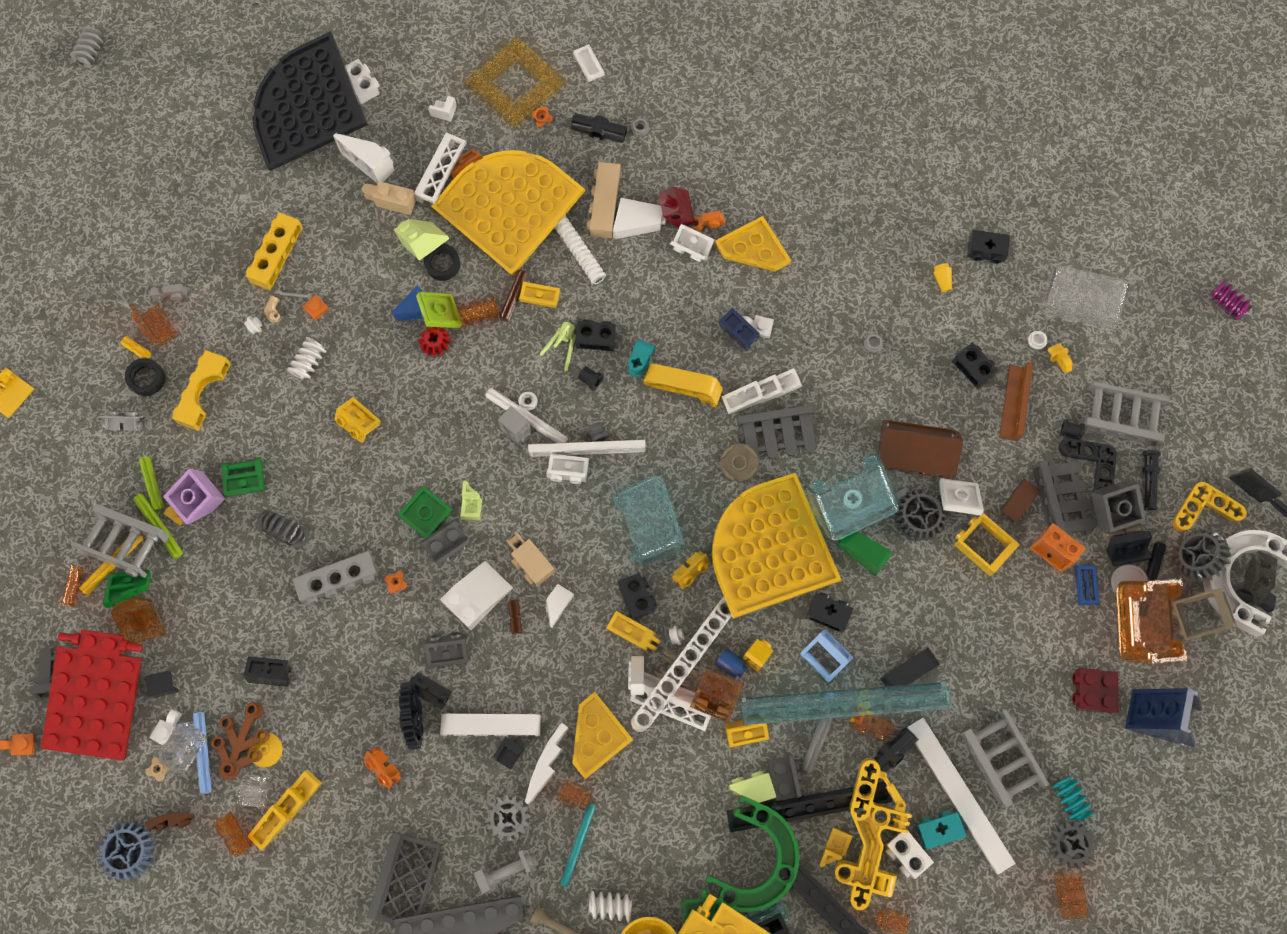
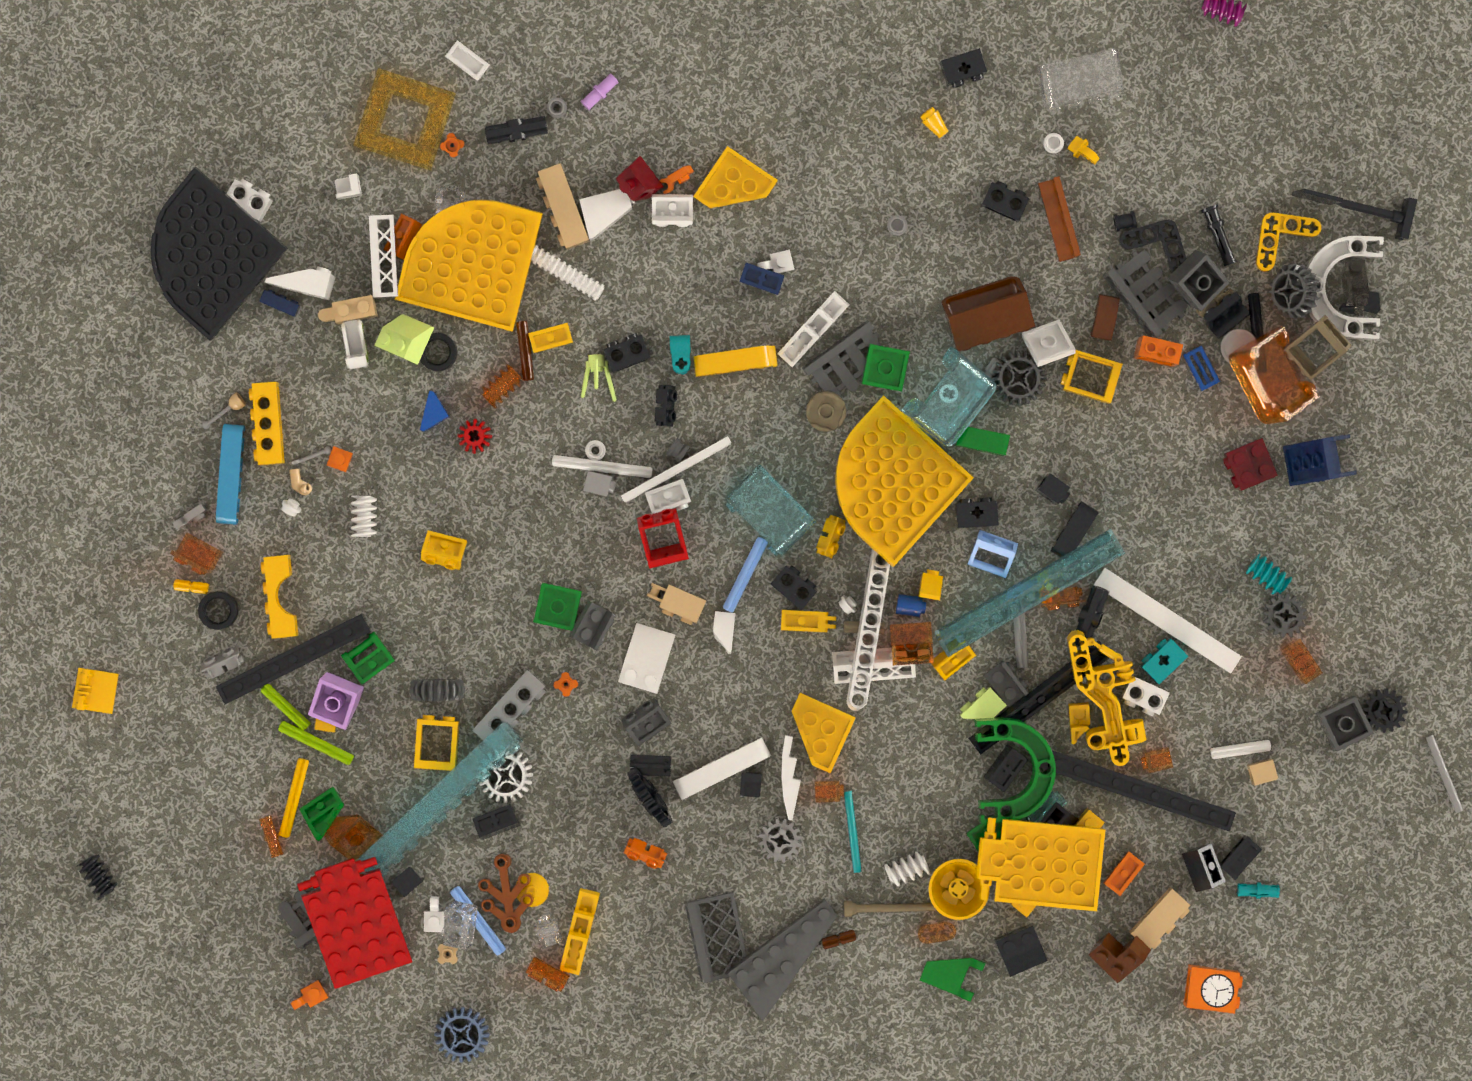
camera: 25 degrees left, 15 degrees up
(120, 522) = (282, 757): light grey fence -> none
(174, 819) = (489, 987): reddish brown slope -> none
(180, 446) = (293, 659): none -> black plate
(220, 275) = (229, 474): none -> dark azure beam
(232, 624) = (443, 797): none -> clear light blue brick
(258, 224) = (235, 402): none -> hinge
(271, 585) = (435, 764): none -> yellow window
(292, 637) = (495, 789): none -> white gear
(339, 167) = (280, 302): none -> dark blue piece
(379, 224) = (355, 344): none -> white animal
(439, 310) = (463, 404): lime plate -> none
(471, 503) = (594, 576): yellowish green slope -> none
(488, 880) = (793, 899): light grey fence -> none
(515, 620) = (694, 664): reddish brown piece -> none
(541, 514) = (667, 554): none -> red window
(590, 378) = (643, 398): black bush -> none
(599, 566) = (745, 574): none -> light blue axle
(610, 386) = (667, 397): none -> black hinge
(636, 675) = (832, 662): white piece -> none
(680, 130) = (599, 92): none -> lavender pin
(747, 856) = (1005, 768): none -> black hinge
(808, 449) = (885, 367): none -> green plate
(908, 622) = (1053, 489): none -> black brick
(992, 775) = (1190, 589): light grey fence -> none
(1113, 427) = (1182, 193): light grey fence -> none

